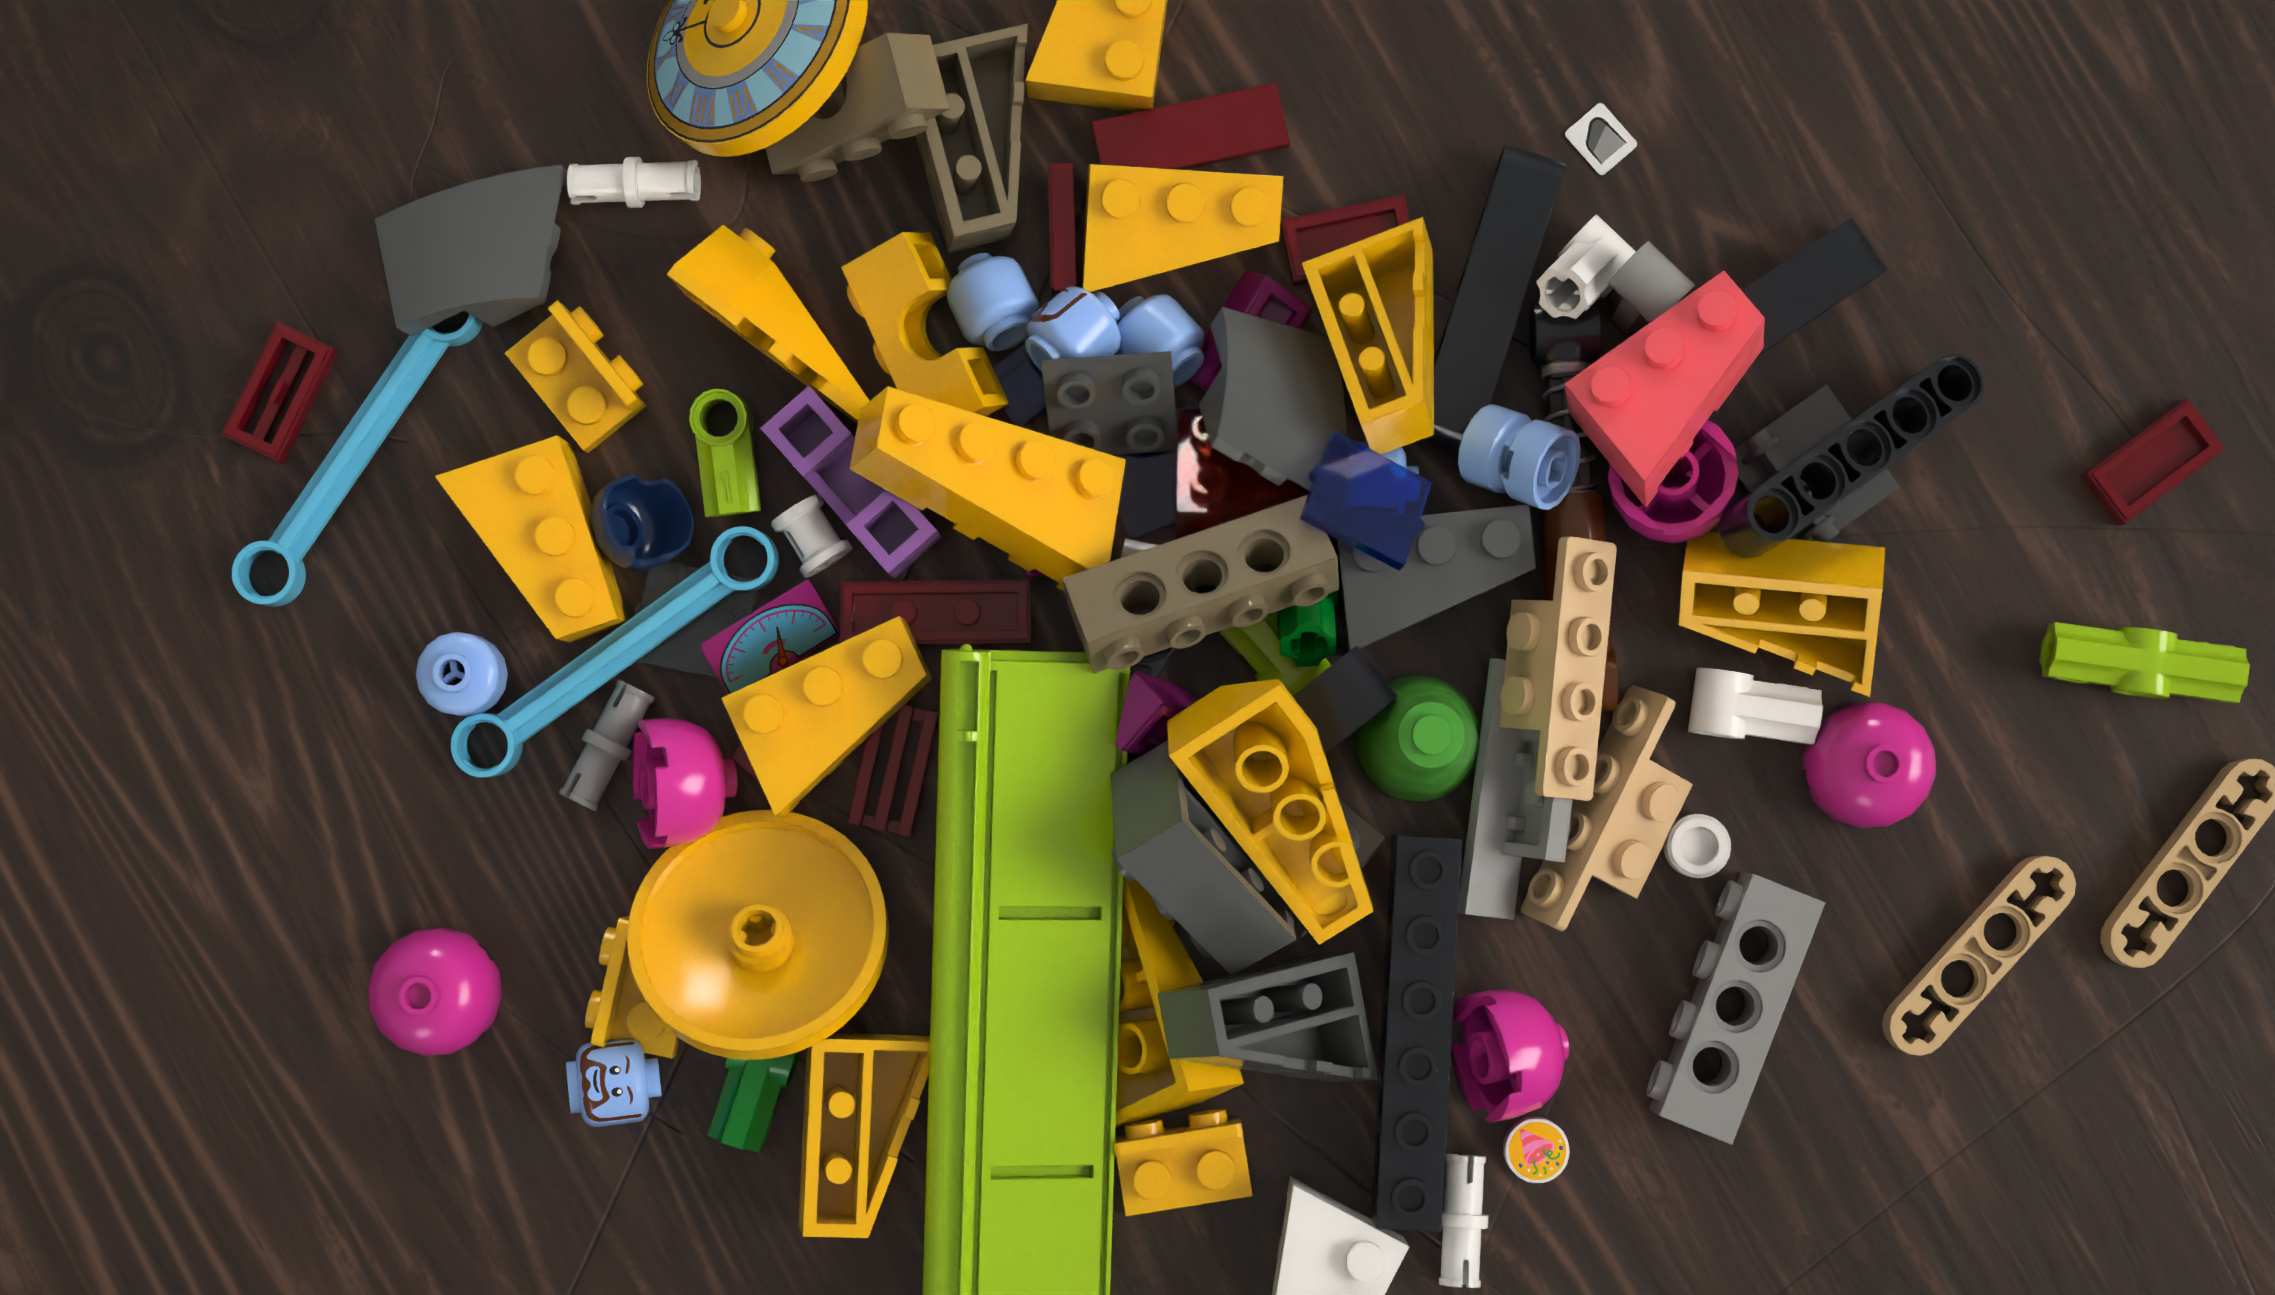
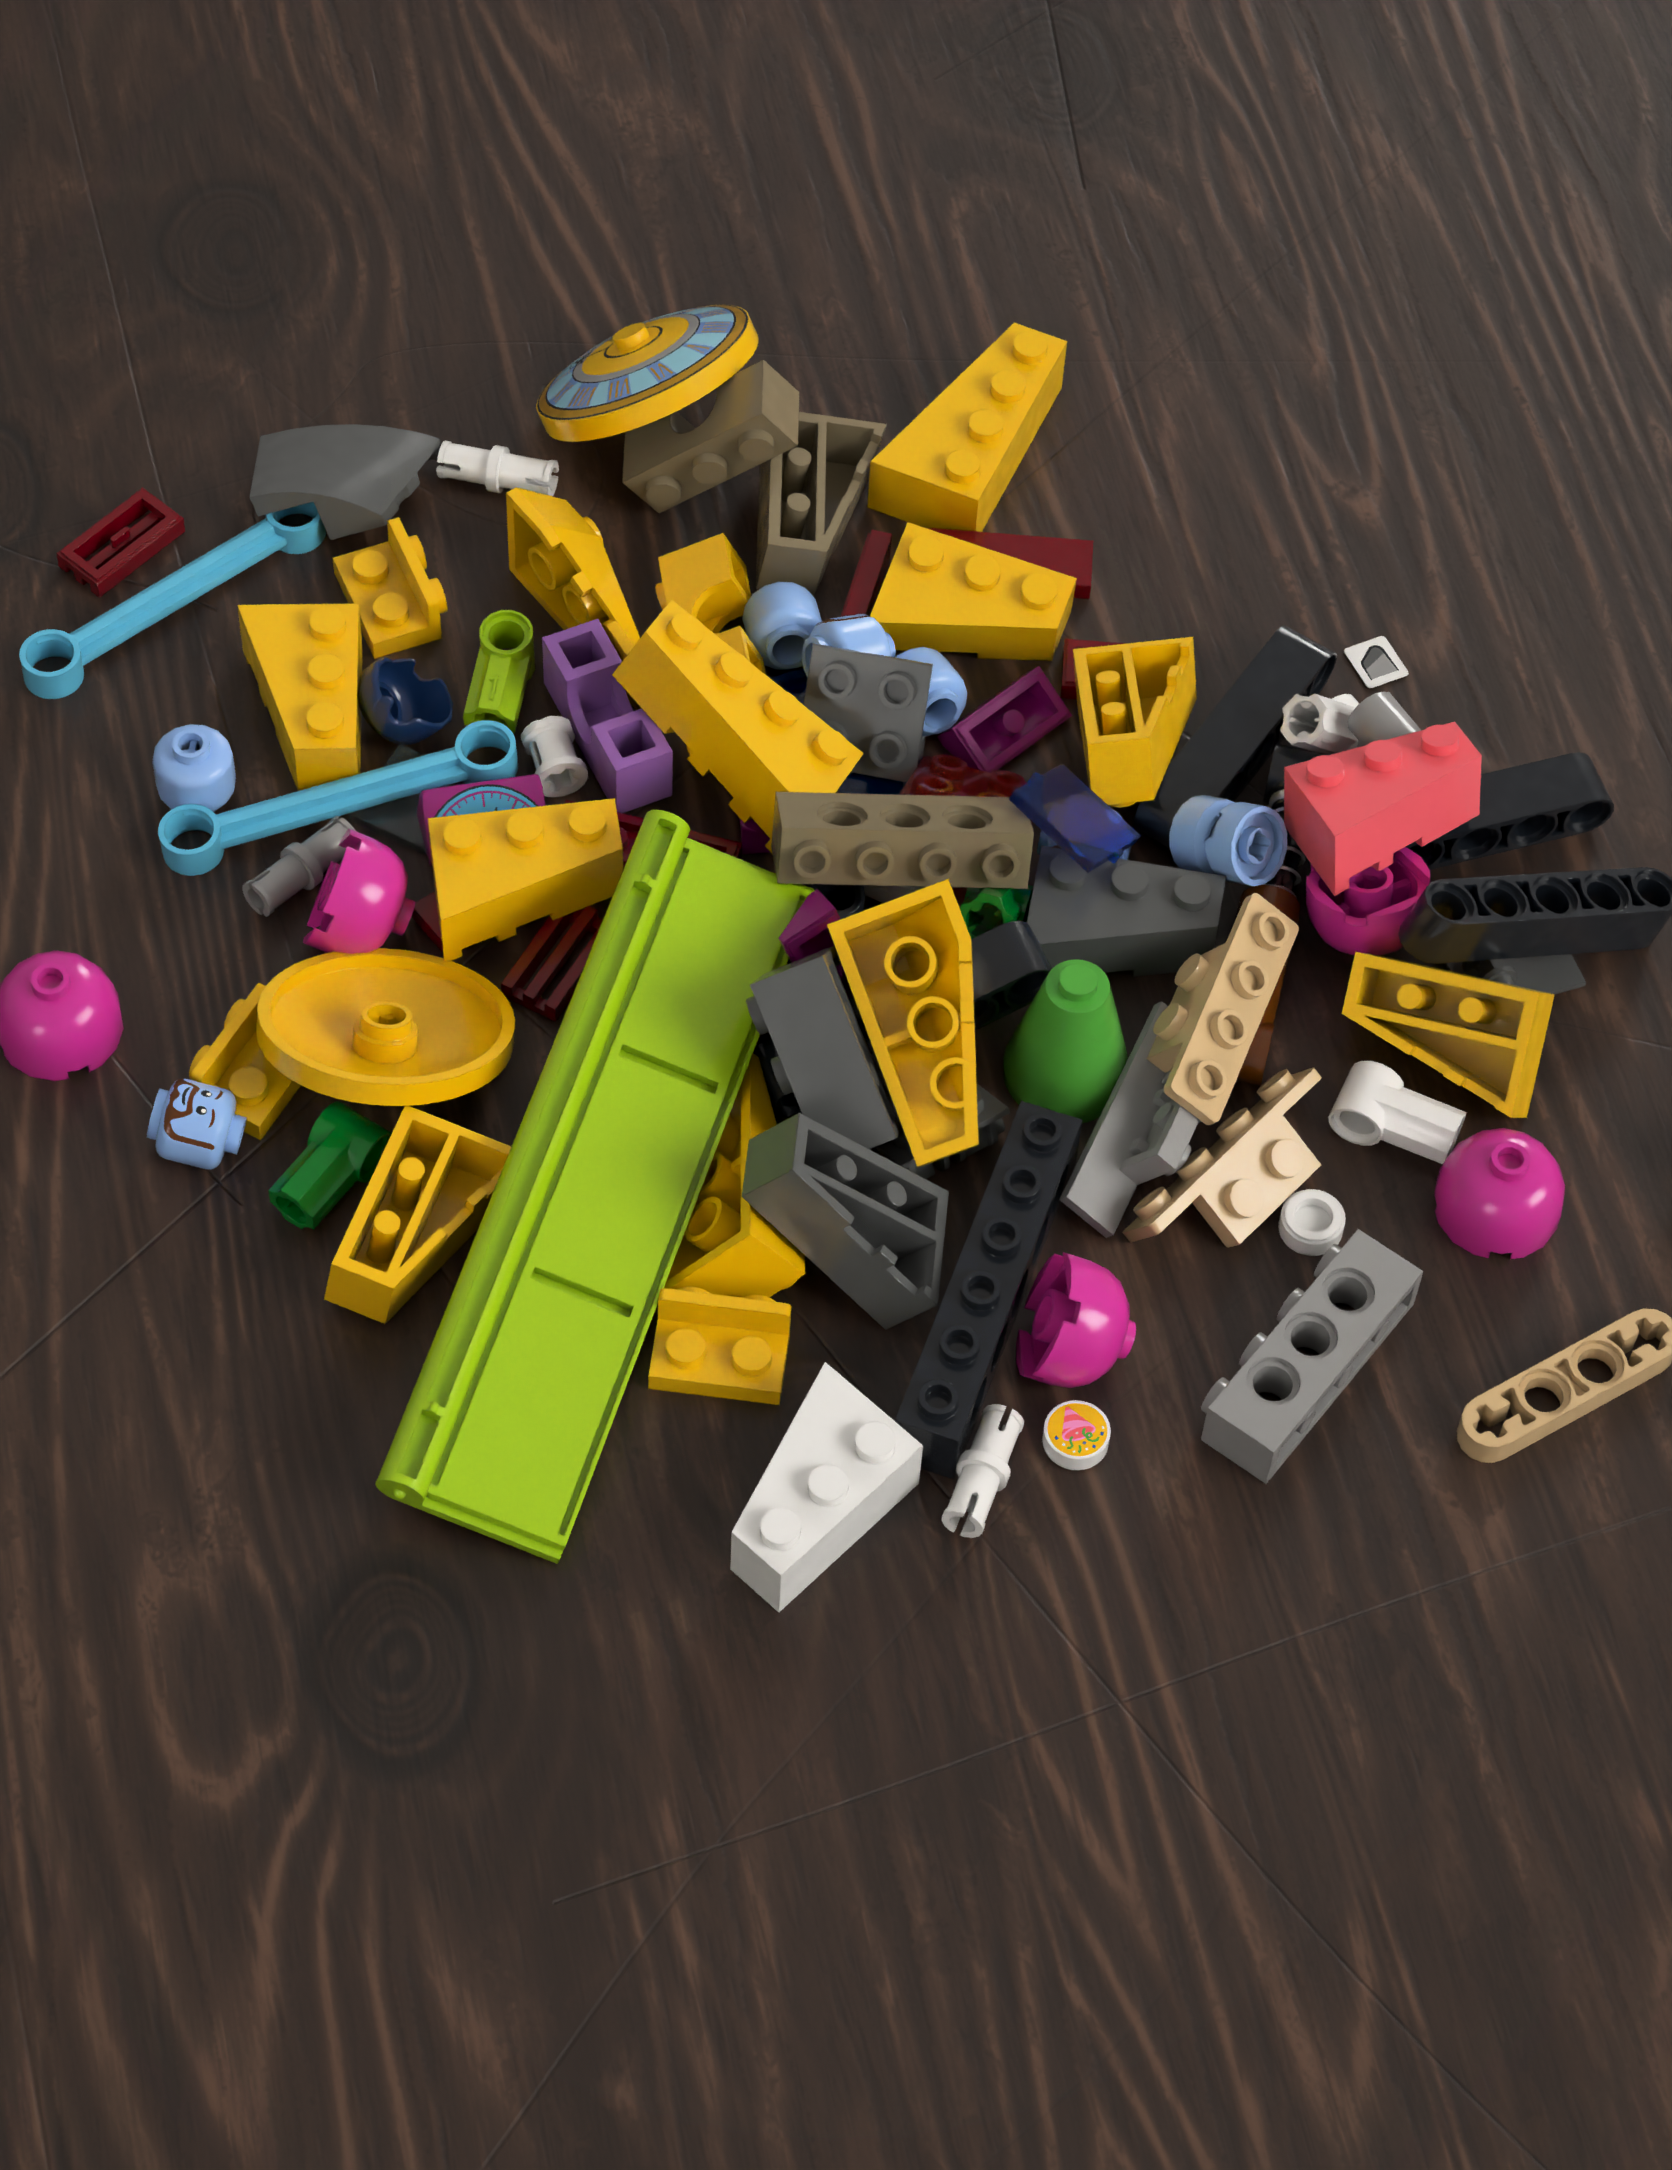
camera: 10 degrees right, 30 degrees down
(1273, 396) = (1010, 735): dark grey slope -> none

